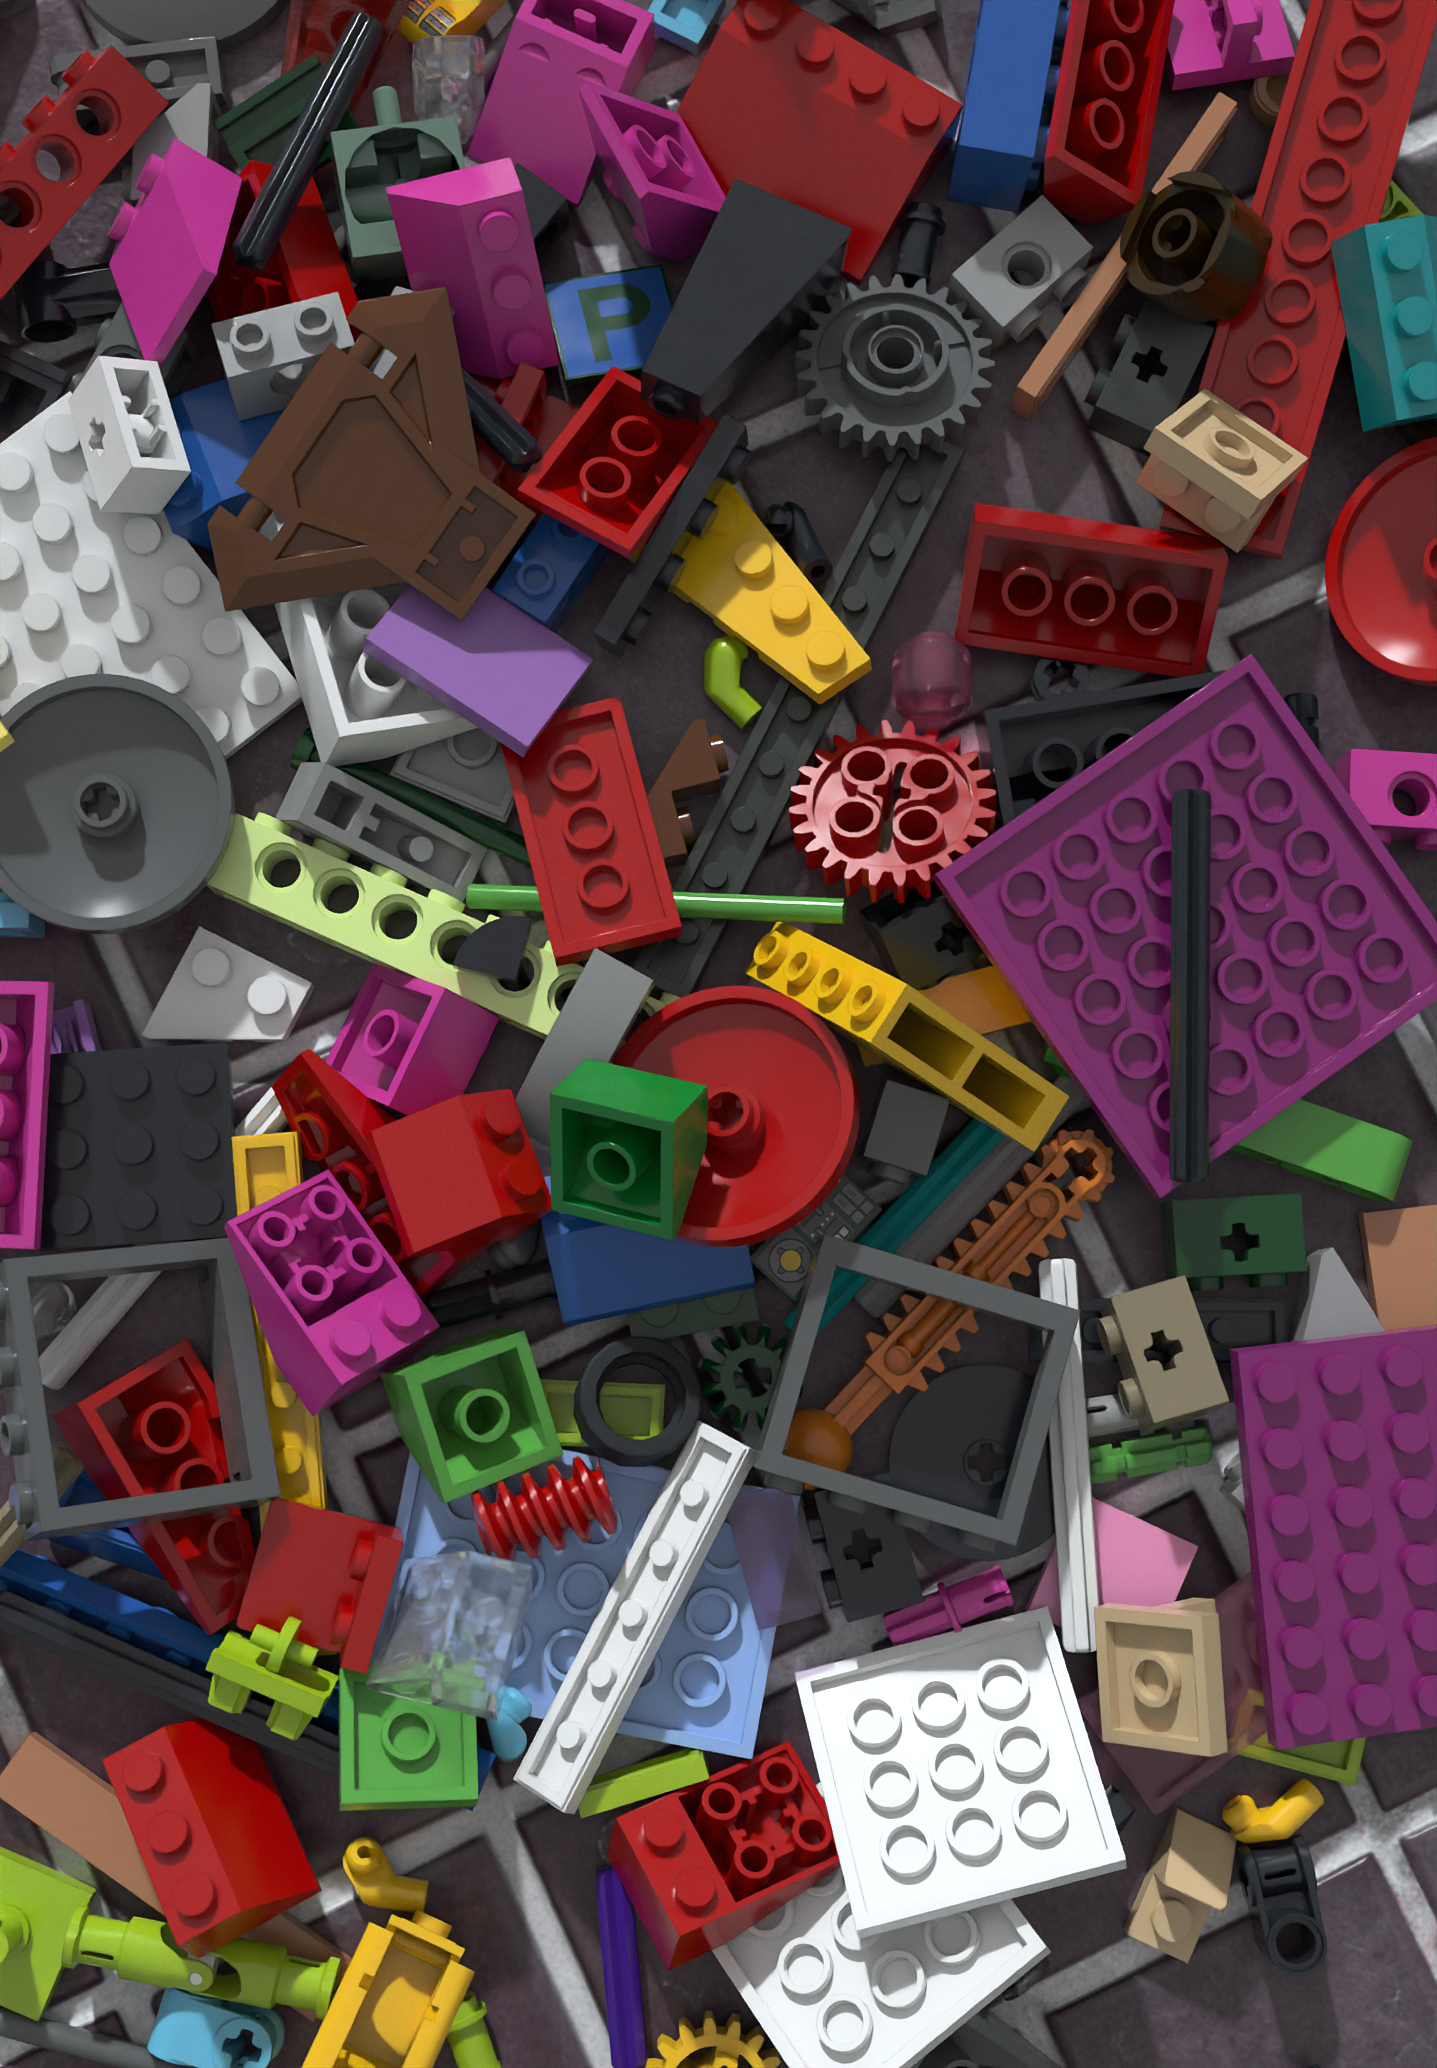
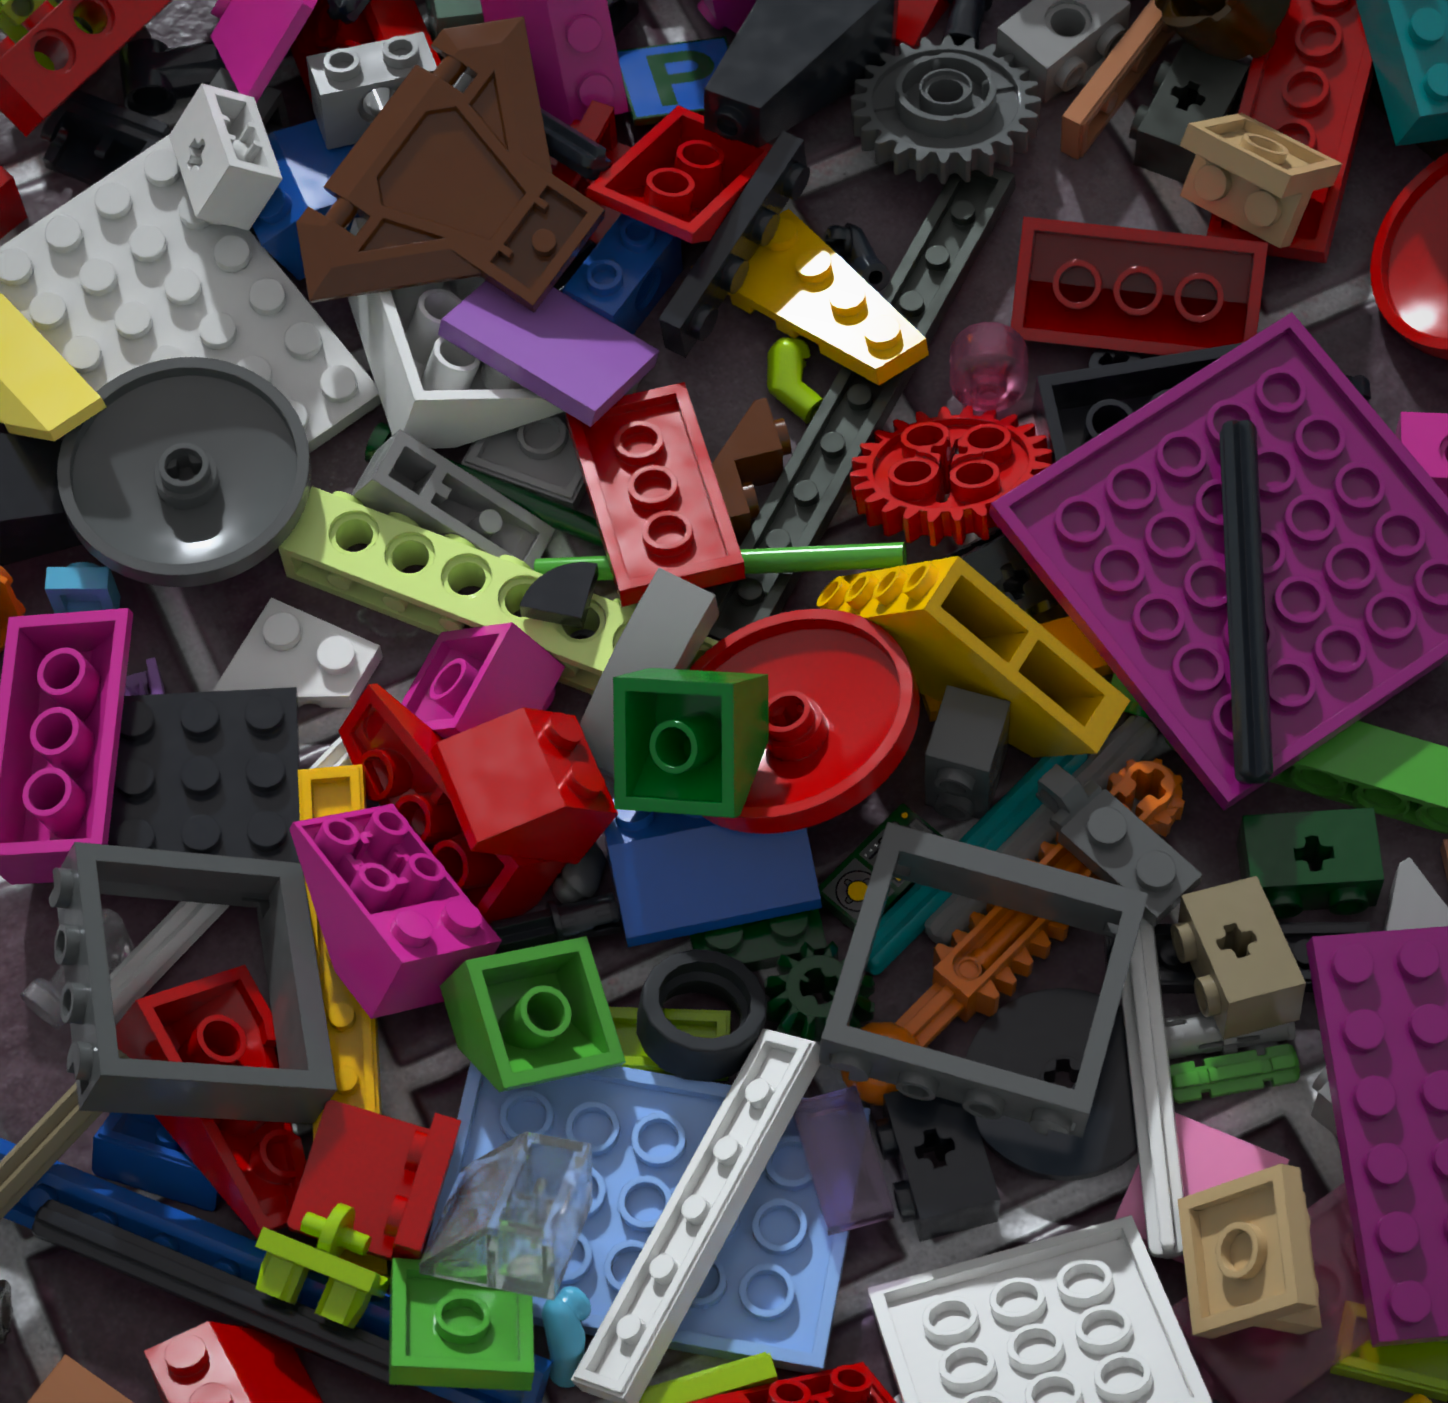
camera: 10 degrees right, 20 degrees down
(545, 1511) = (609, 1105): red piece -> none
(949, 1607) = (1028, 1220): dark pink axle -> none
(1049, 1238) = (1116, 842): none -> dark grey hinge

